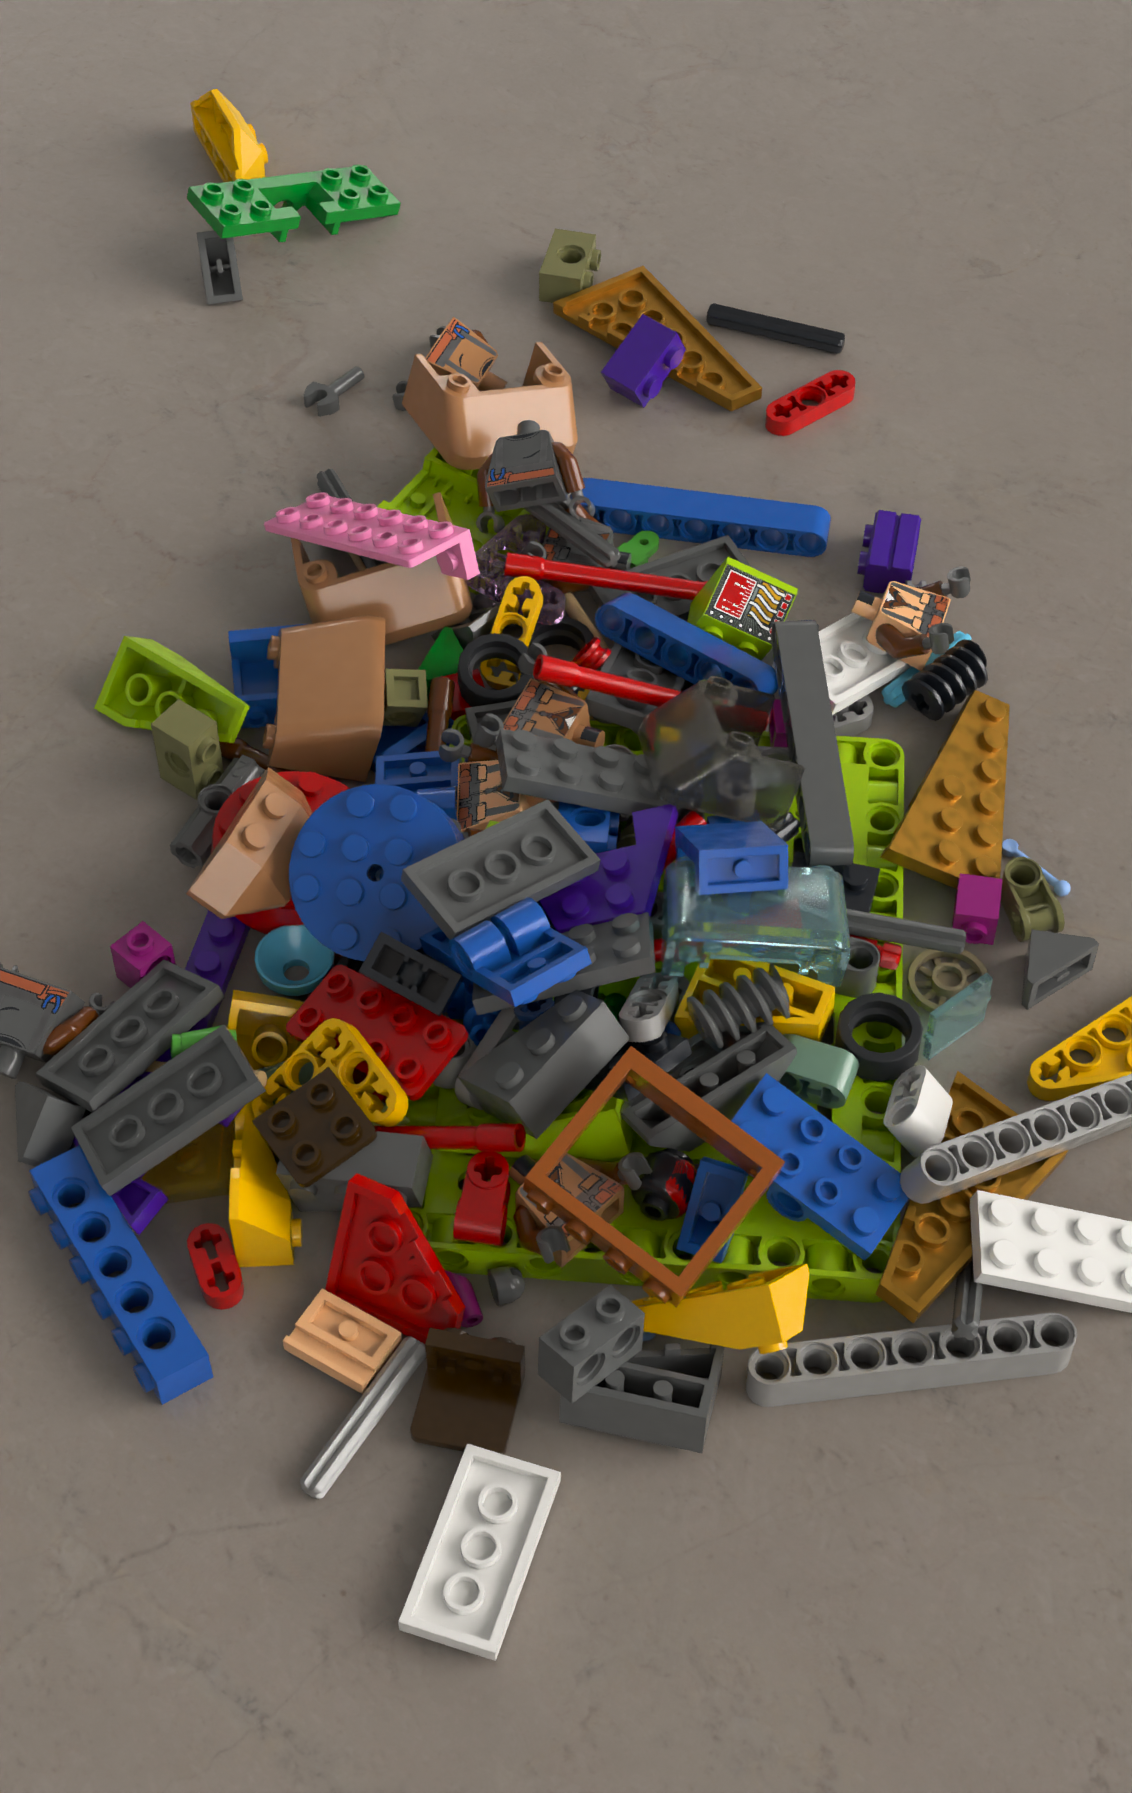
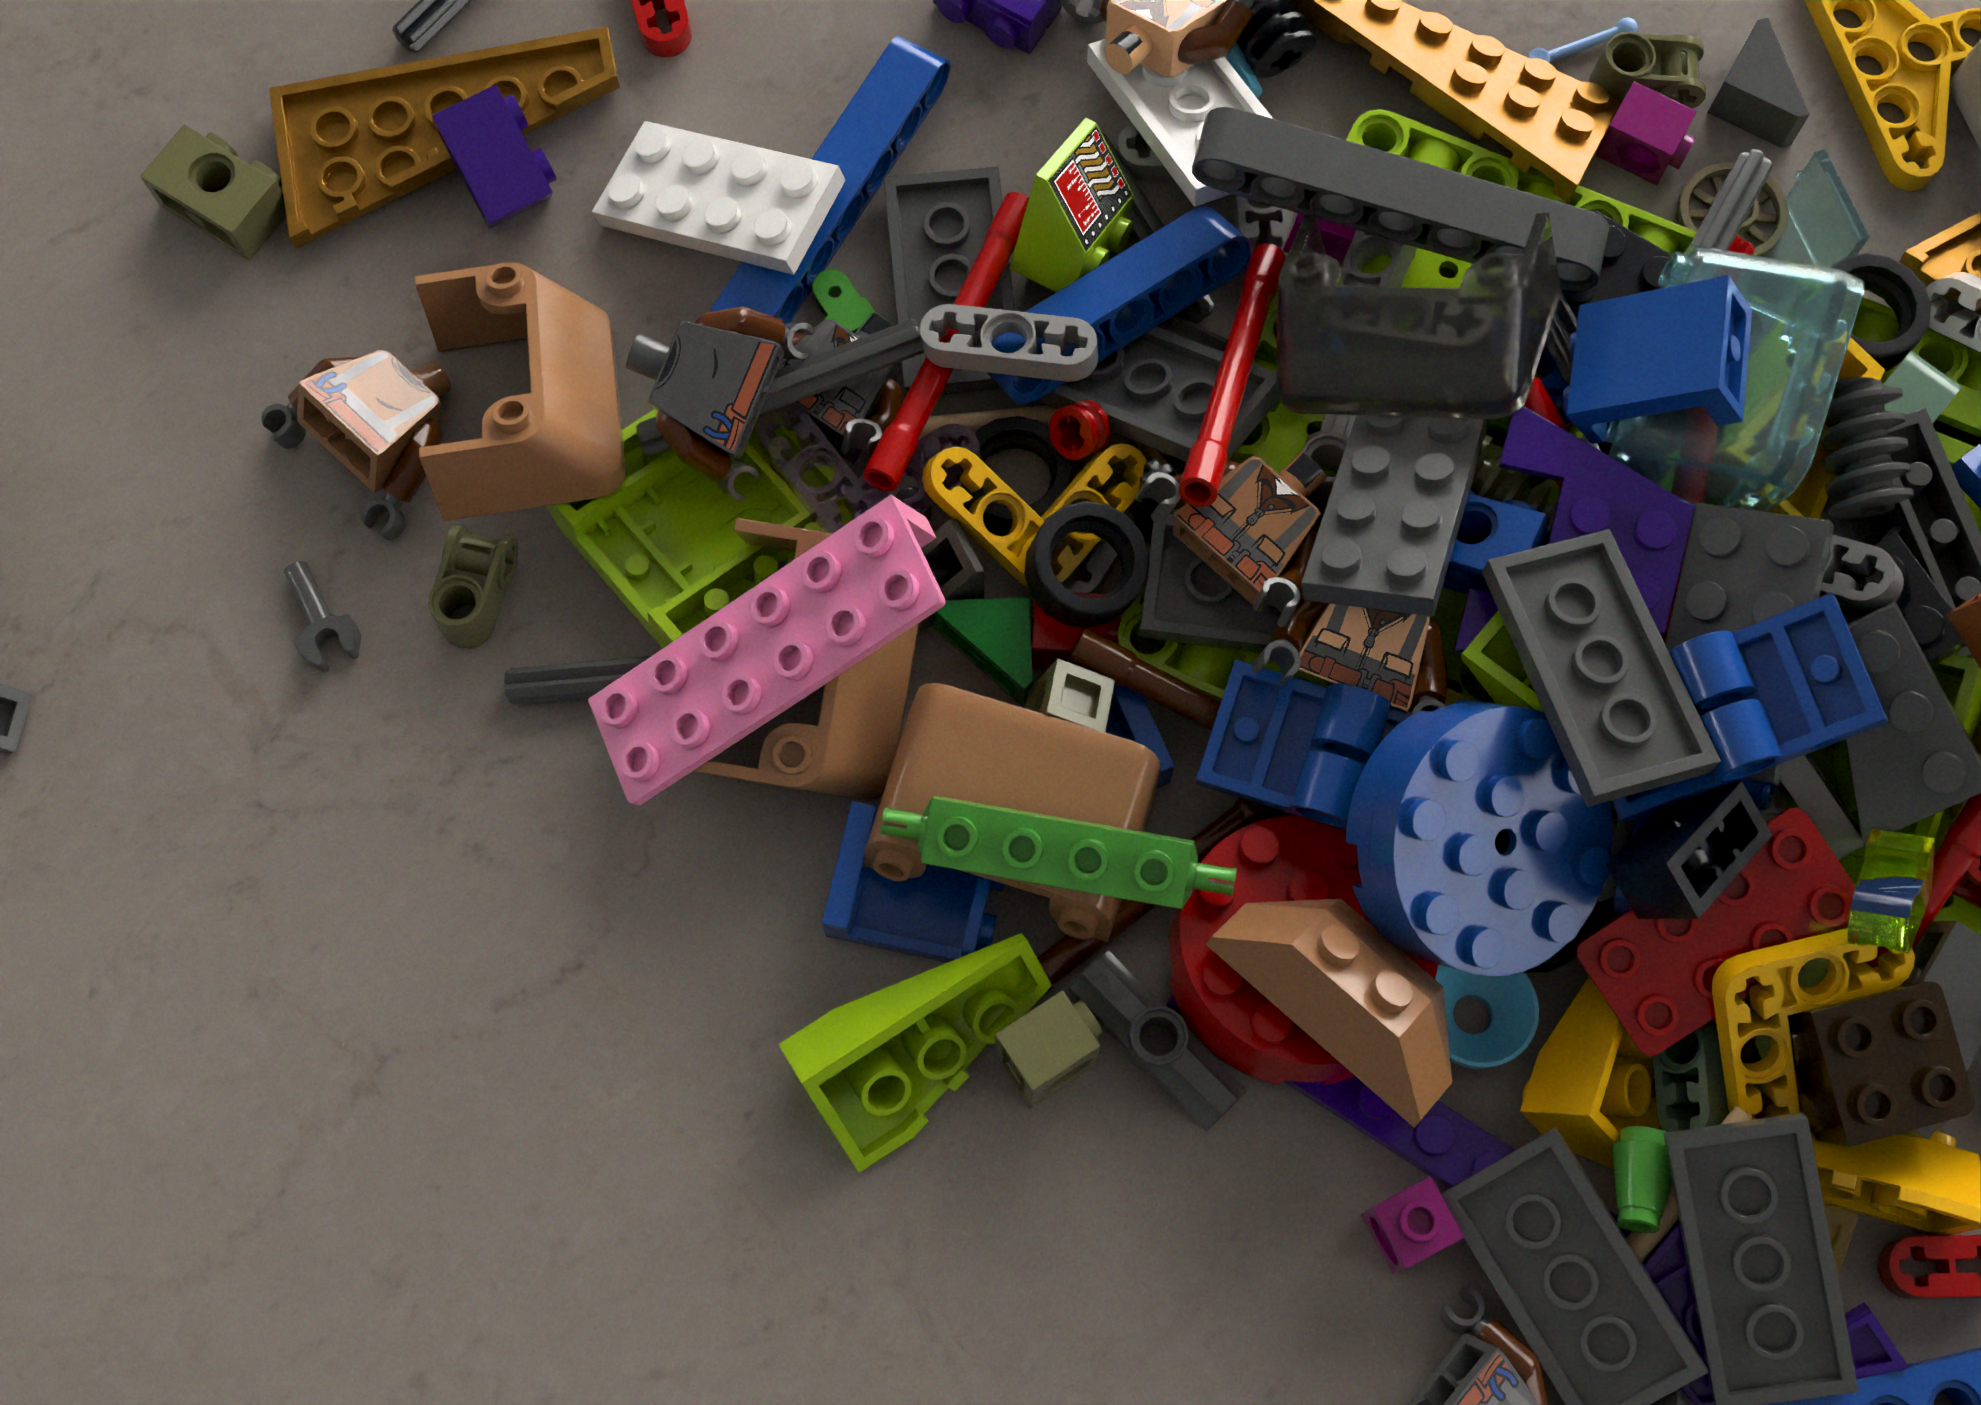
camera: 70 degrees left, 20 degrees up
(299, 697) = (1058, 852): none -> bright green plate
(373, 439) = (472, 573): none -> olive piece
(418, 1081) = (1891, 890): none -> clear neon green leg
(615, 601) = (1025, 362): none -> light grey beam
(671, 462) = (719, 196): none -> white plate

